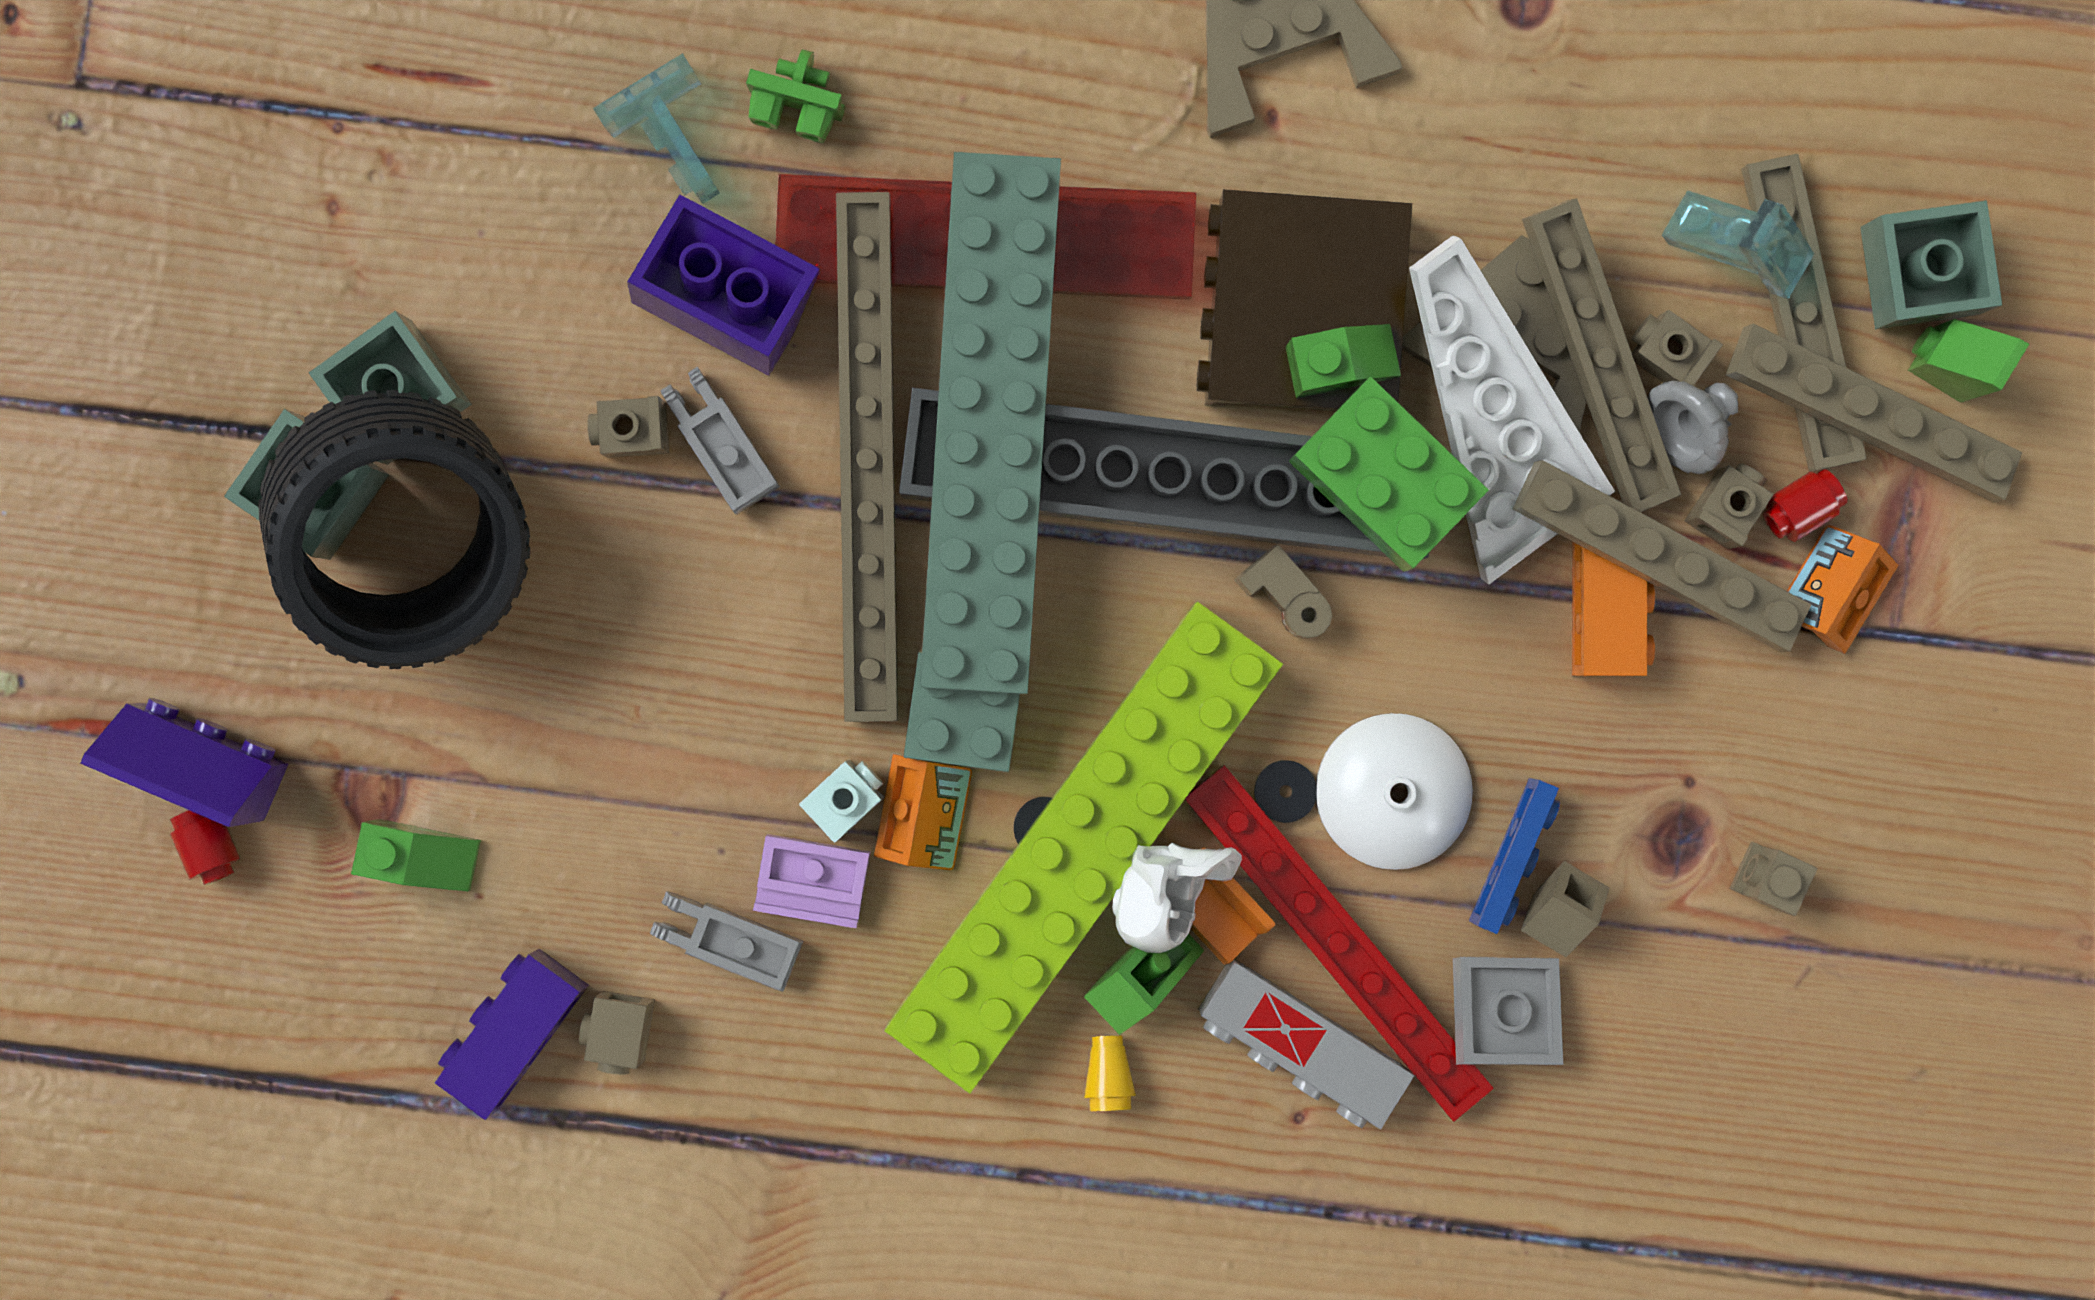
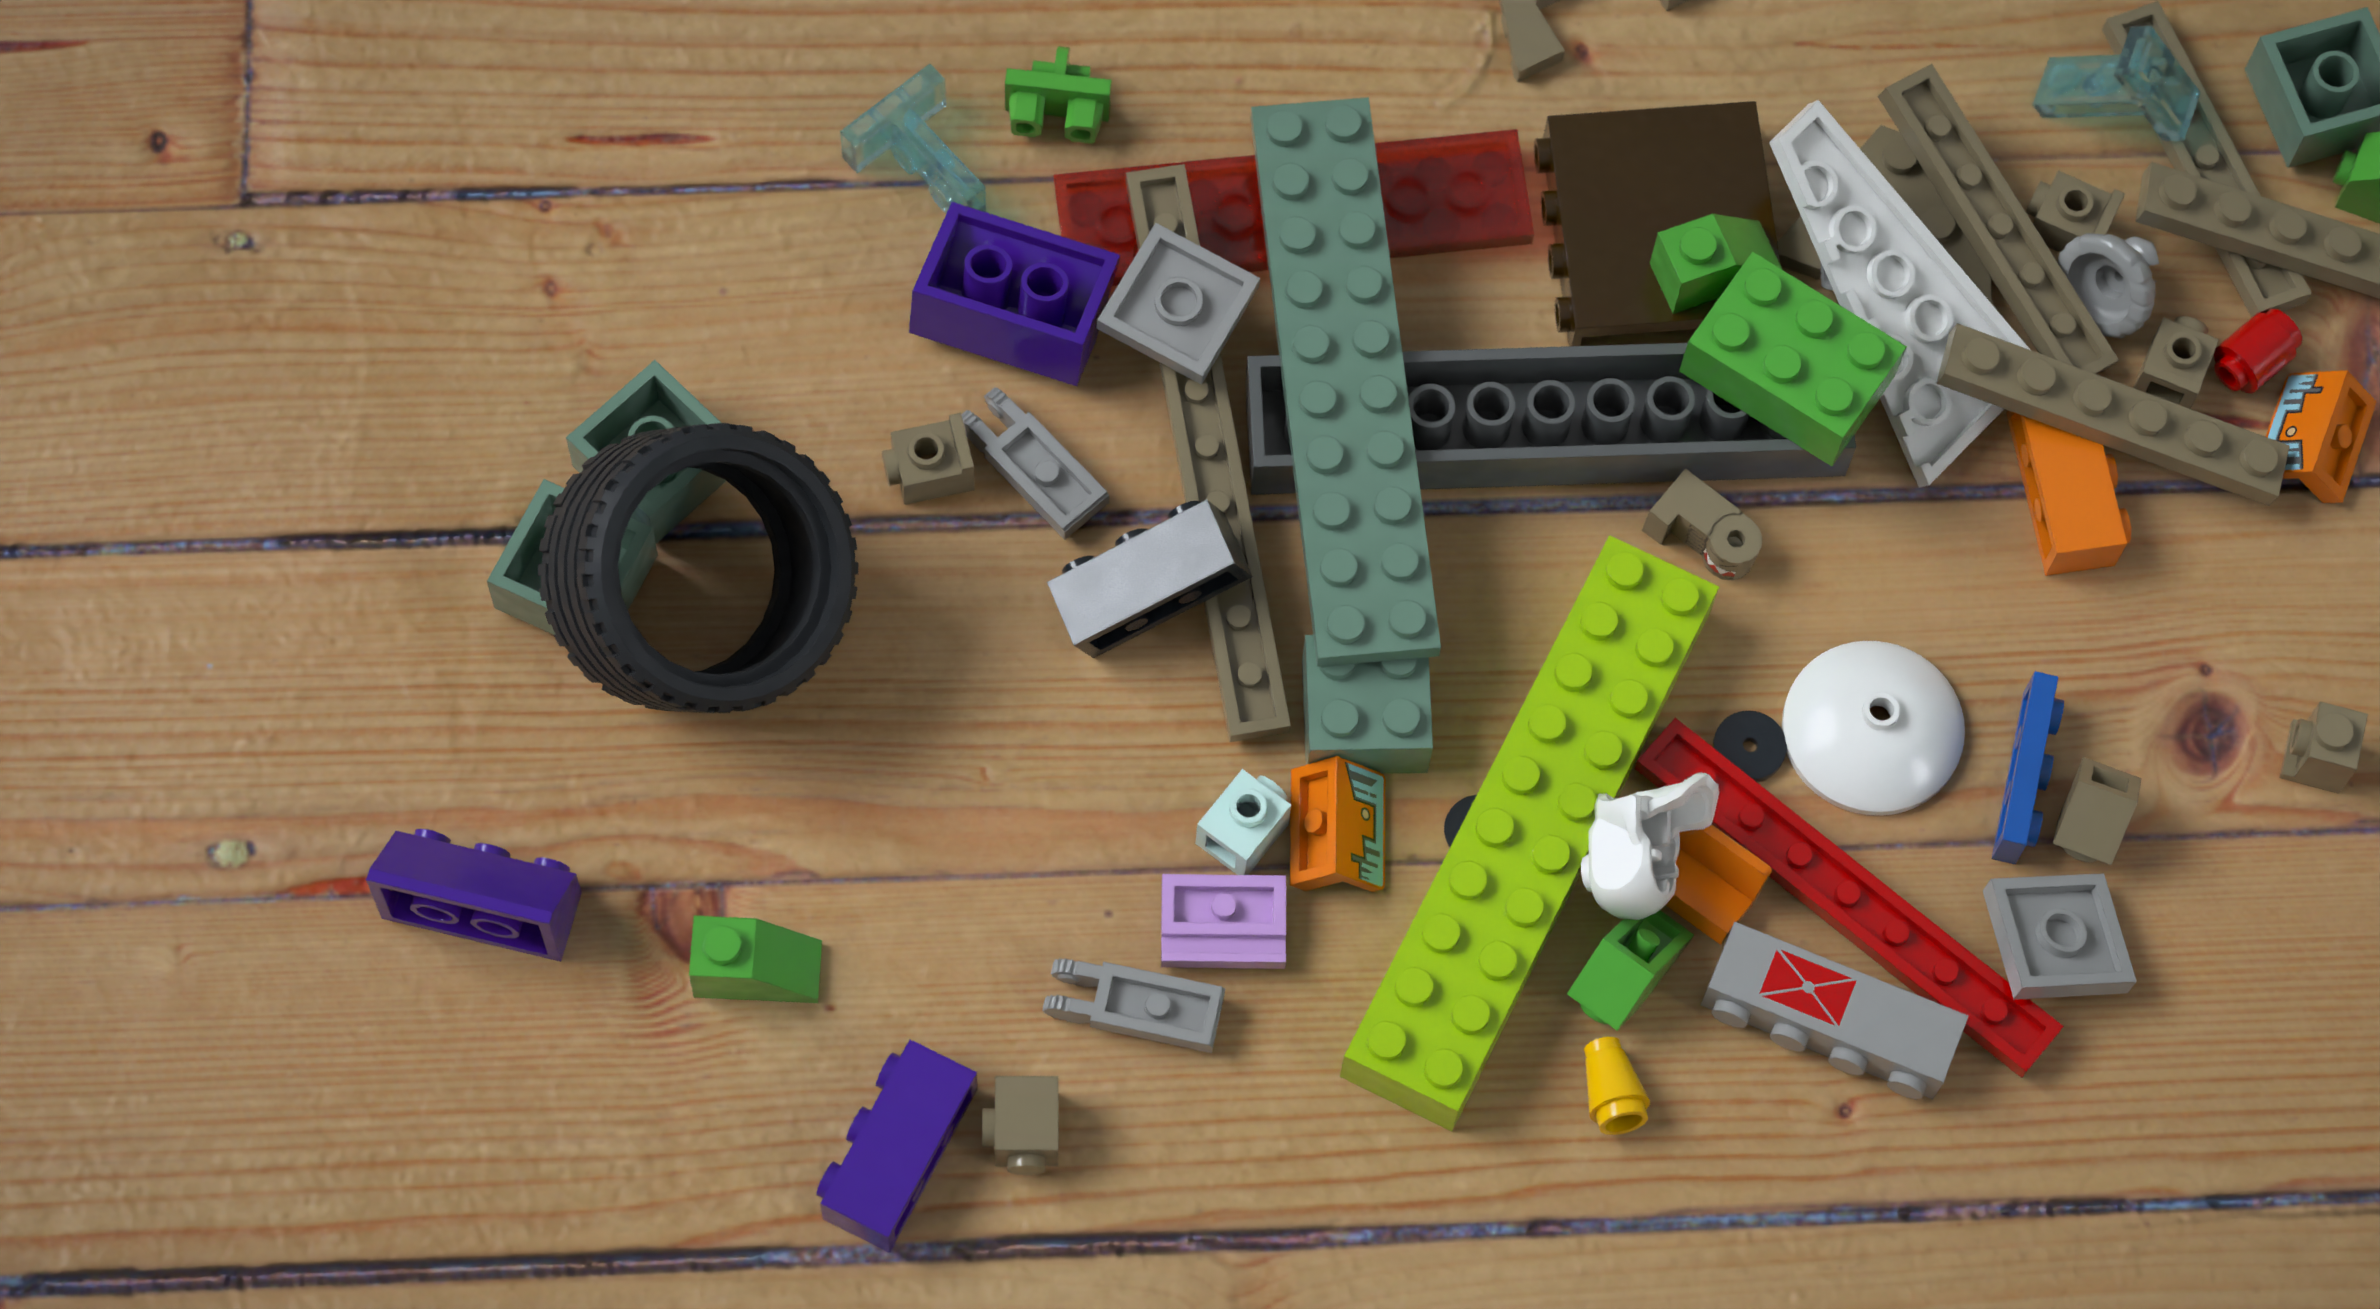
camera: 15 degrees left, 20 degrees down
(203, 847) = (500, 986): red brick -> none
(795, 573) = (1149, 577): none -> brick
(858, 329) = (1178, 303): none -> light grey plate

